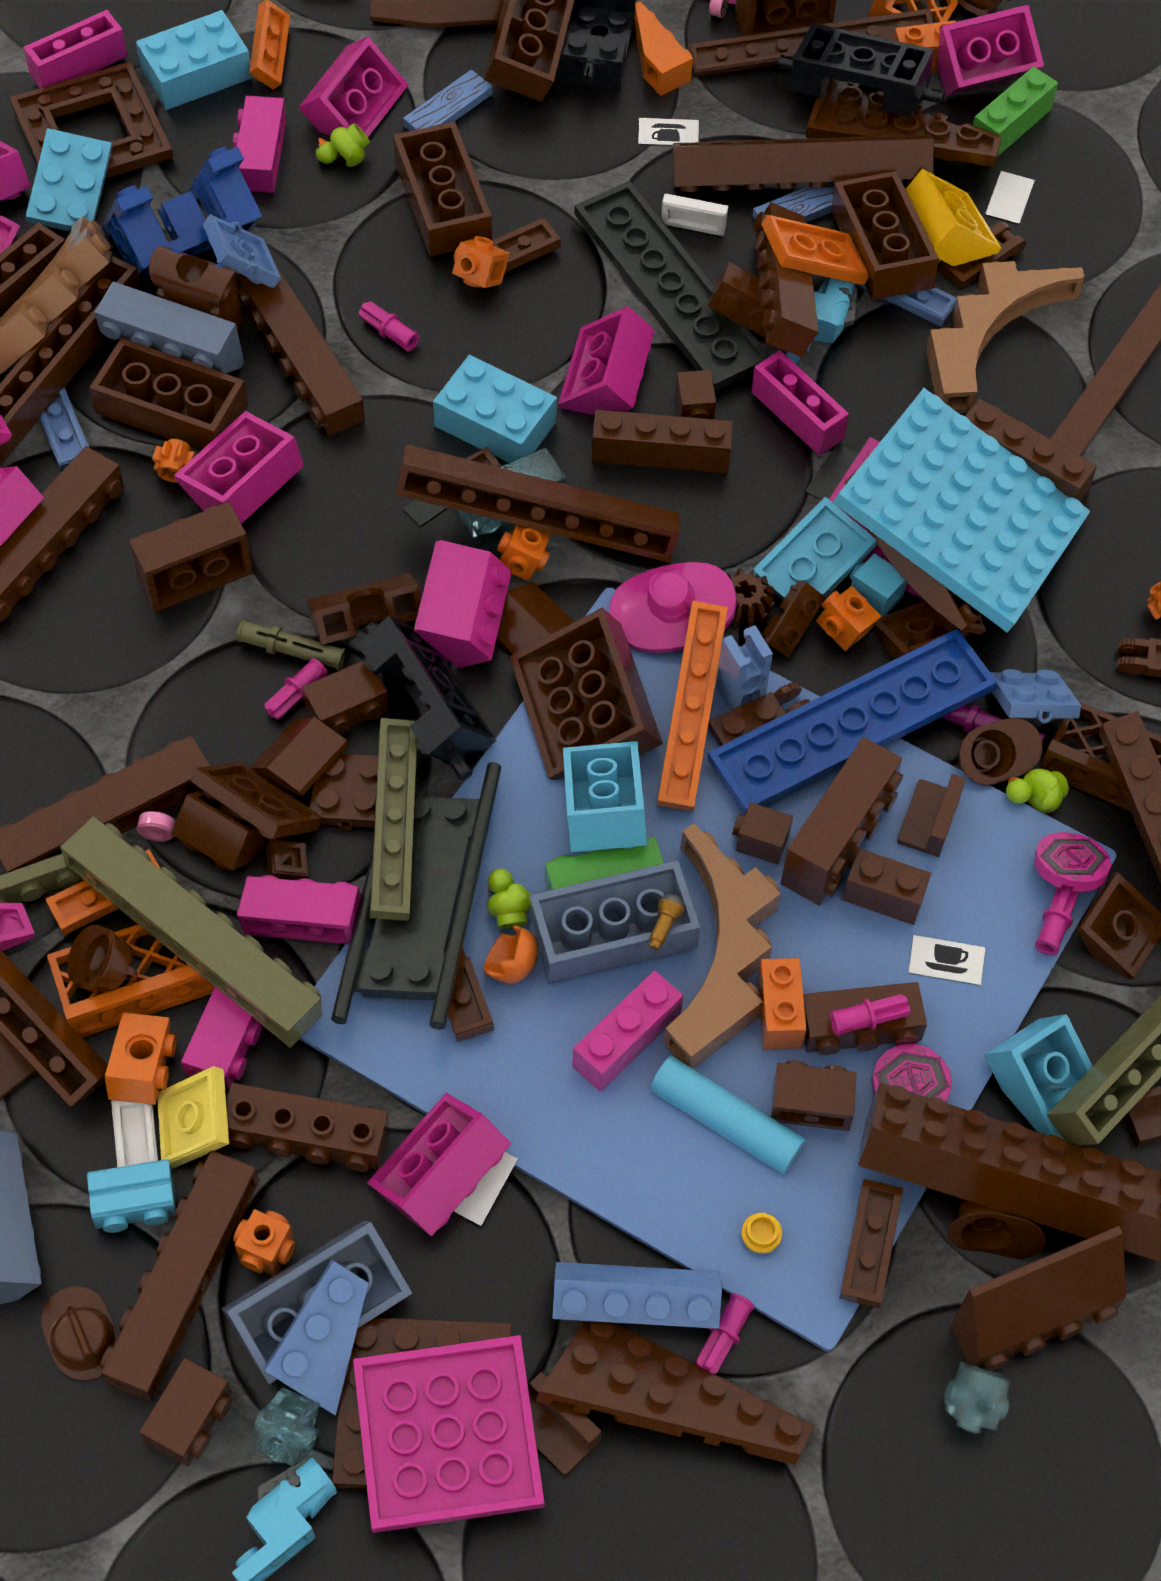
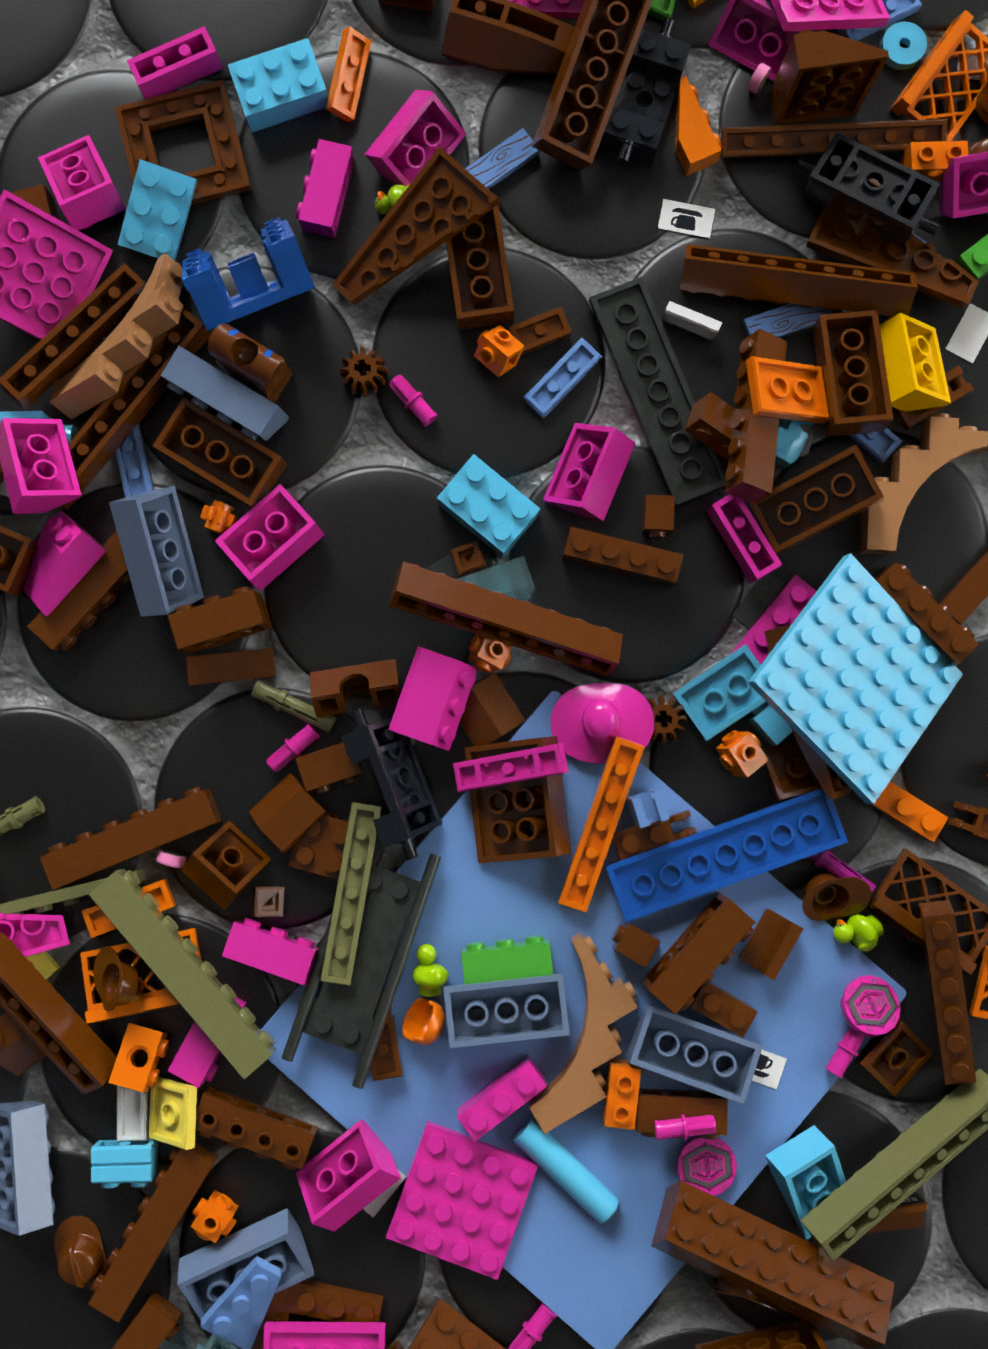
camera: 10 degrees right, 25 degrees up
(102, 485) = (157, 551): none -> sand blue slope
(206, 615) = (231, 666): none -> reddish brown tile
(241, 251) = (292, 326): medium blue plate -> none
(256, 800) = (247, 856): reddish brown plate -> none
(302, 354) = (334, 413): reddish brown brick -> none
(328, 302) = (353, 367): none -> reddish brown gear
(378, 139) = (427, 214): none -> reddish brown wing
(558, 287) = (562, 378): none -> medium blue tile
(569, 648) = (510, 767): none -> dark pink plate
(597, 1173) = (462, 1200): none -> dark pink plate
(604, 797) = (515, 906): medium azure brick -> none
(637, 1295) = (474, 1302): medium blue brick -> none
(670, 909) = (548, 1021): pearl gold piece -> none
(761, 1233) = (572, 1266): yellow plate -> none
(800, 608) = (687, 755): reddish brown hinge -> none
(814, 1095) = (631, 1169): reddish brown brick -> none
(863, 937) = (694, 1053): none -> sand blue slope
(871, 1243) = (648, 1293): reddish brown plate -> none
(876, 348) = (817, 500): none -> reddish brown brick
(1034, 693) = (875, 851): medium blue plate -> none
(1051, 653) = (910, 812): none -> orange plate

